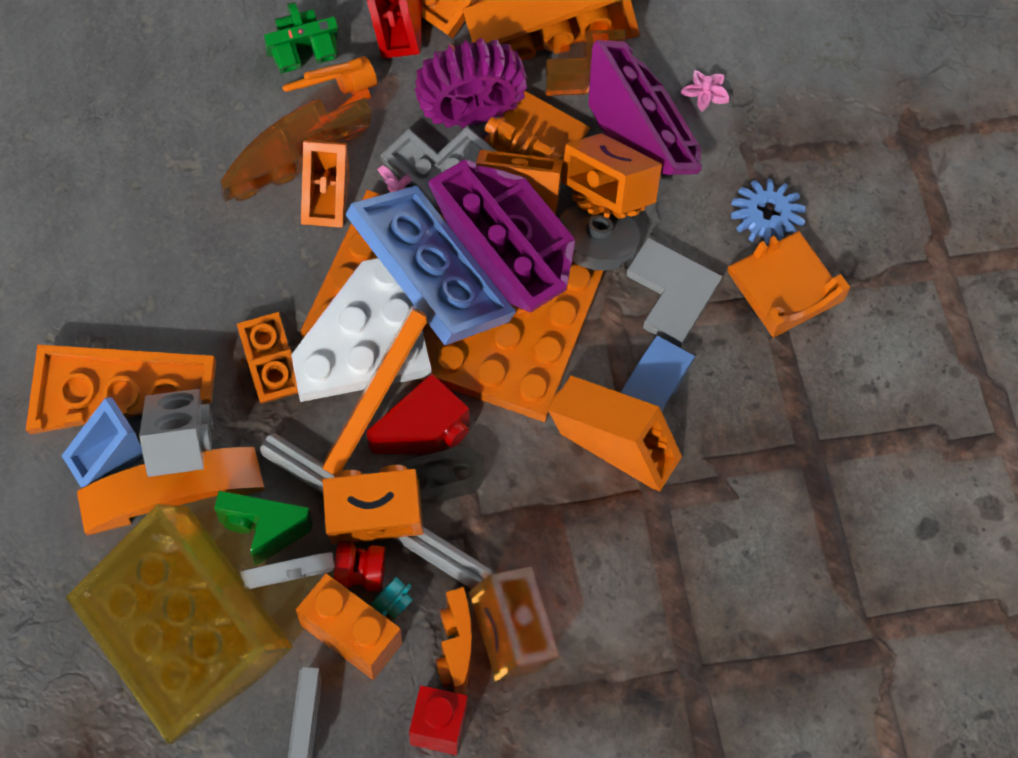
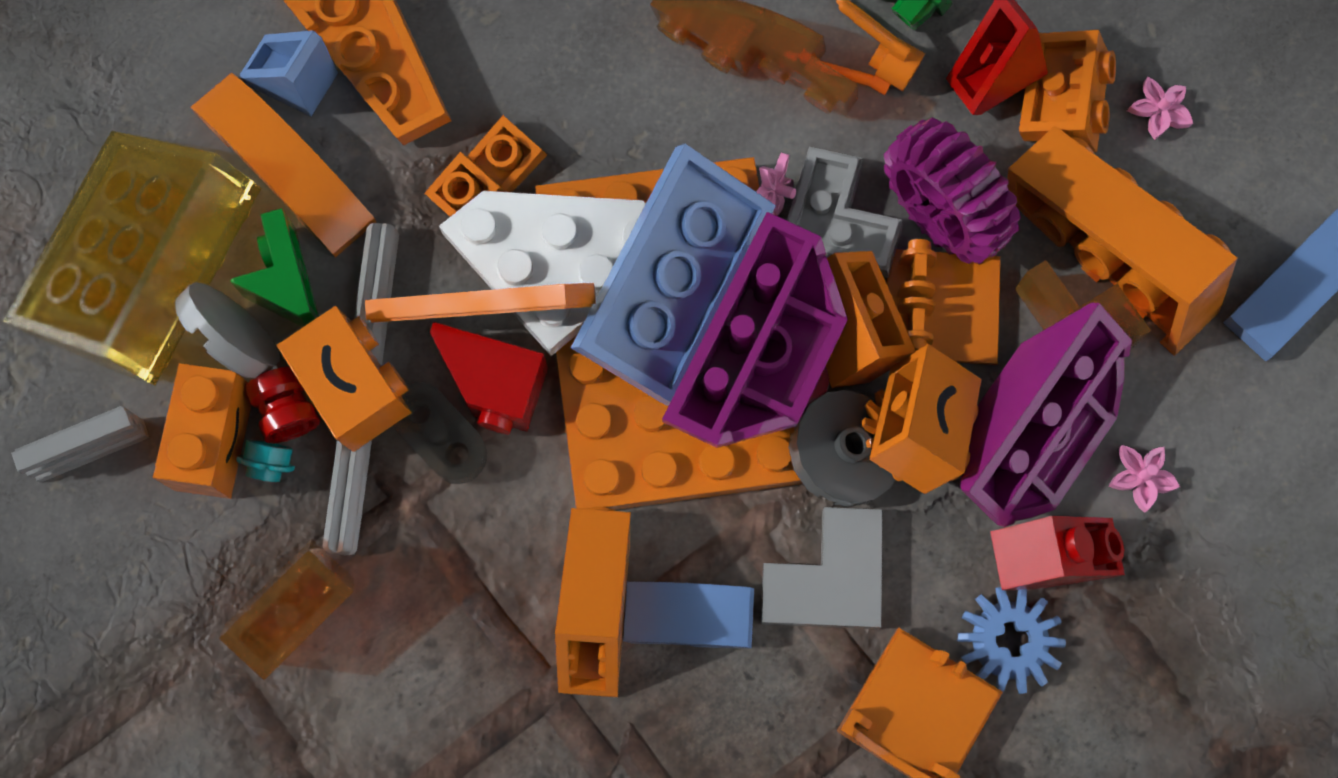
camera: 65 degrees right, 10 degrees up
(175, 432) = (323, 124): light grey brick -> none
(324, 183) = (729, 108): orange slope -> none
(438, 720) = (142, 584): red brick -> none
(456, 652) = (227, 566): orange slope -> none
(730, 155) = (1057, 552): none -> red slope

